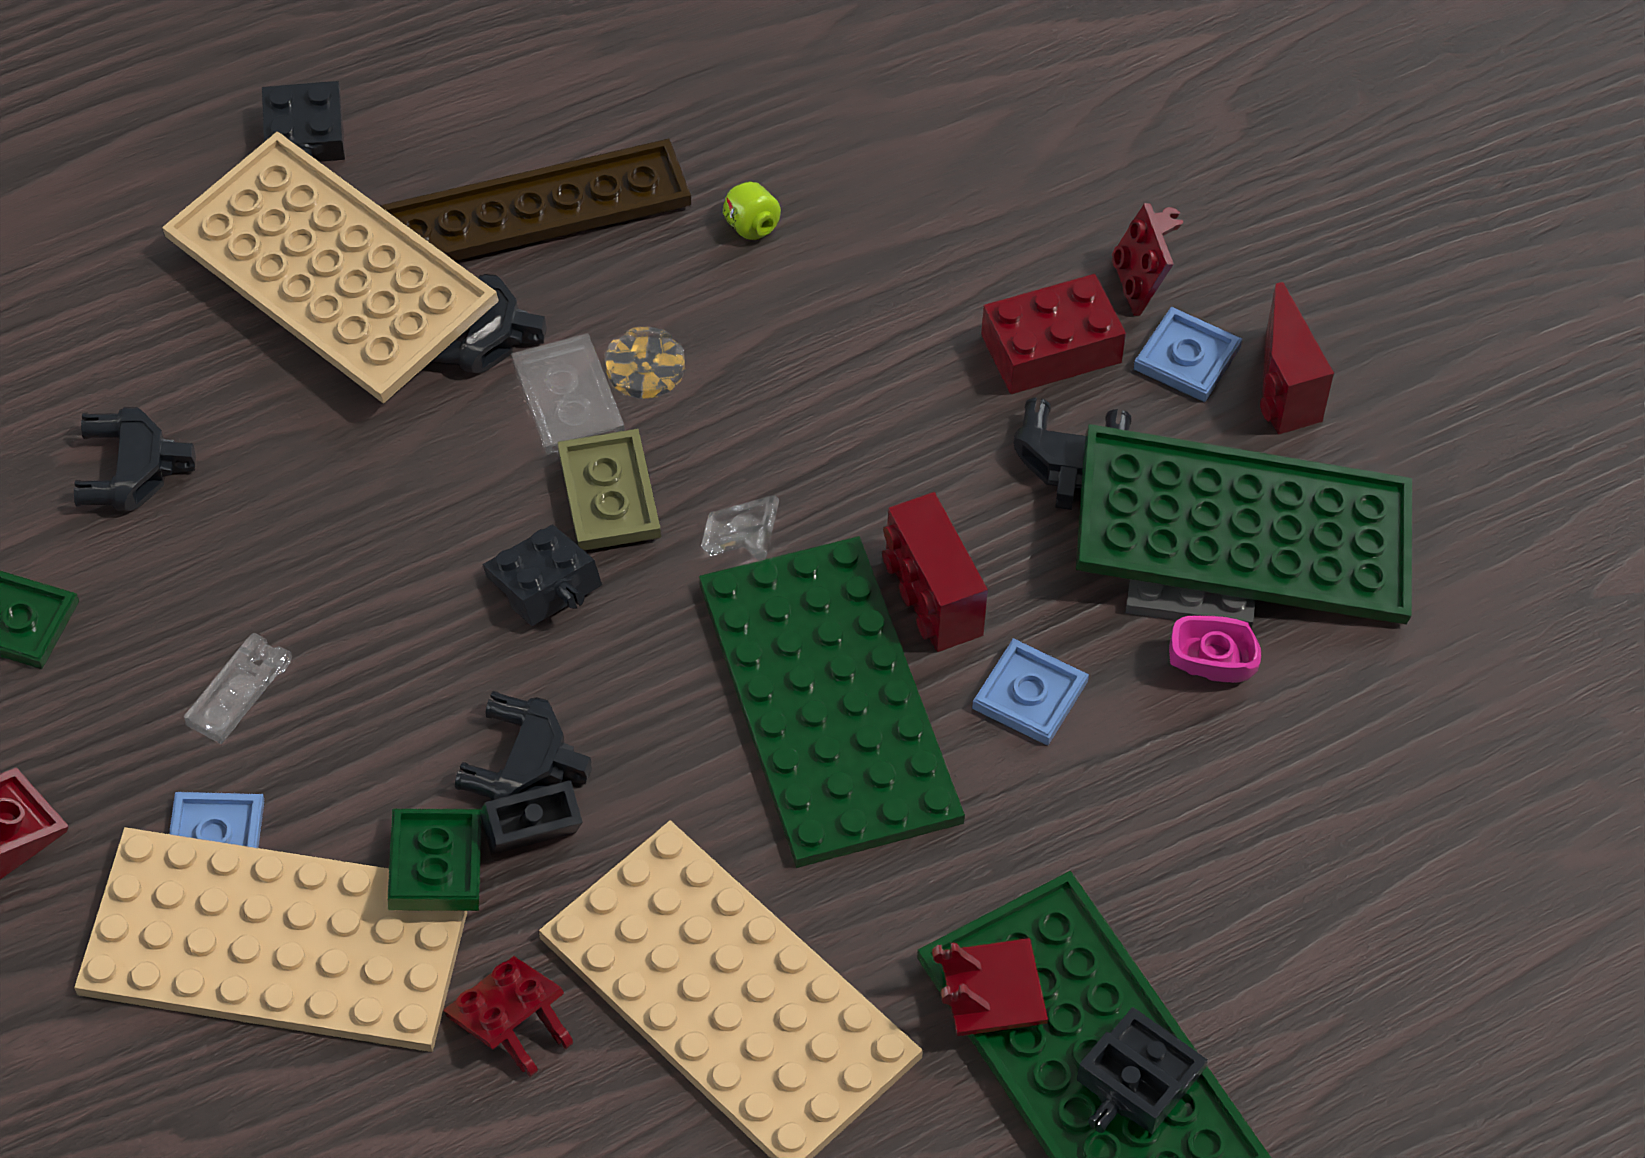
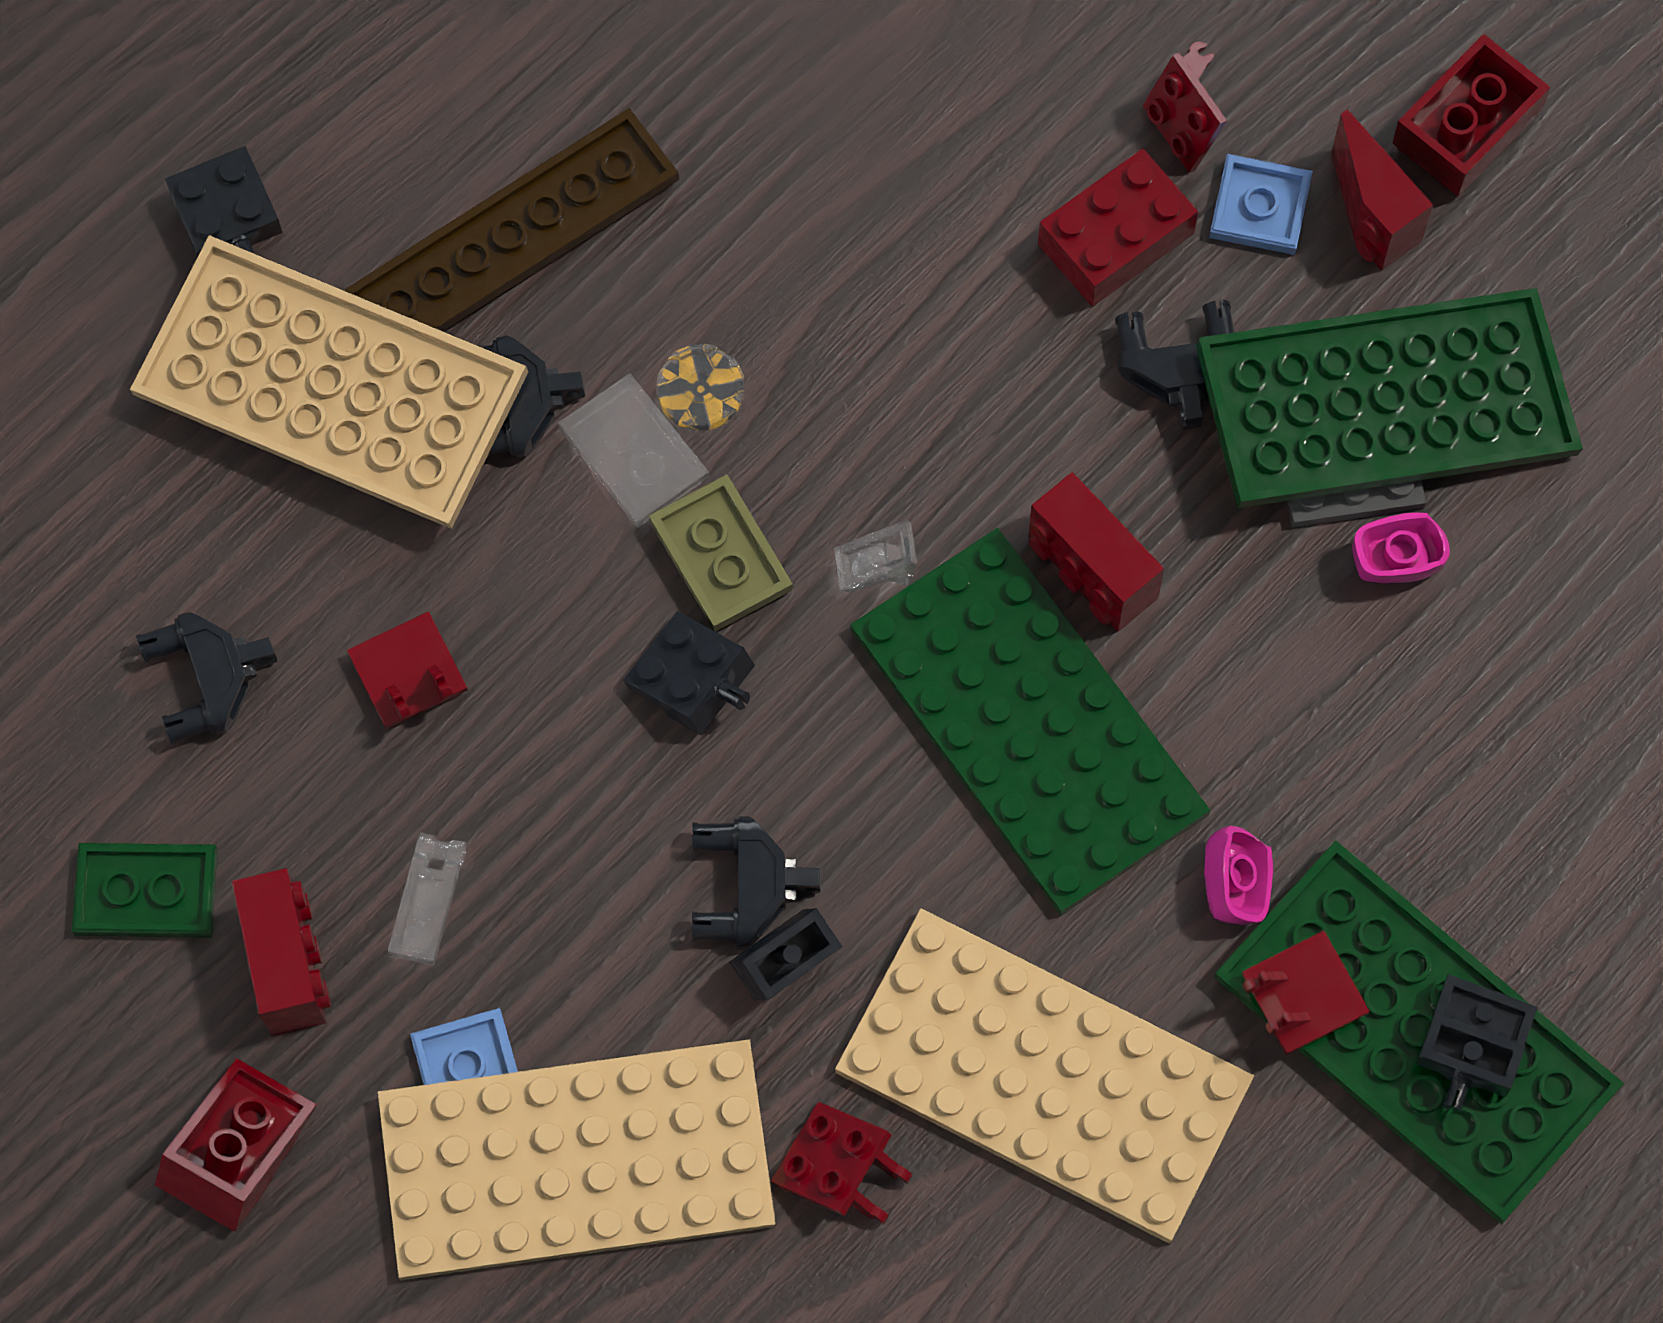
camera: 15 degrees left, 15 degrees up
(88, 686) = (281, 951): none -> dark red brick
(301, 506) = (407, 670): none -> dark red plate
(434, 860) = (706, 1029): dark green tile -> none
(751, 210) = (749, 171): lime head -> none
(968, 874) = (1238, 876): none -> dark pink piece
(1030, 691) = (1228, 649): medium blue tile -> none
(1396, 328) = (1470, 115): none -> dark red brick

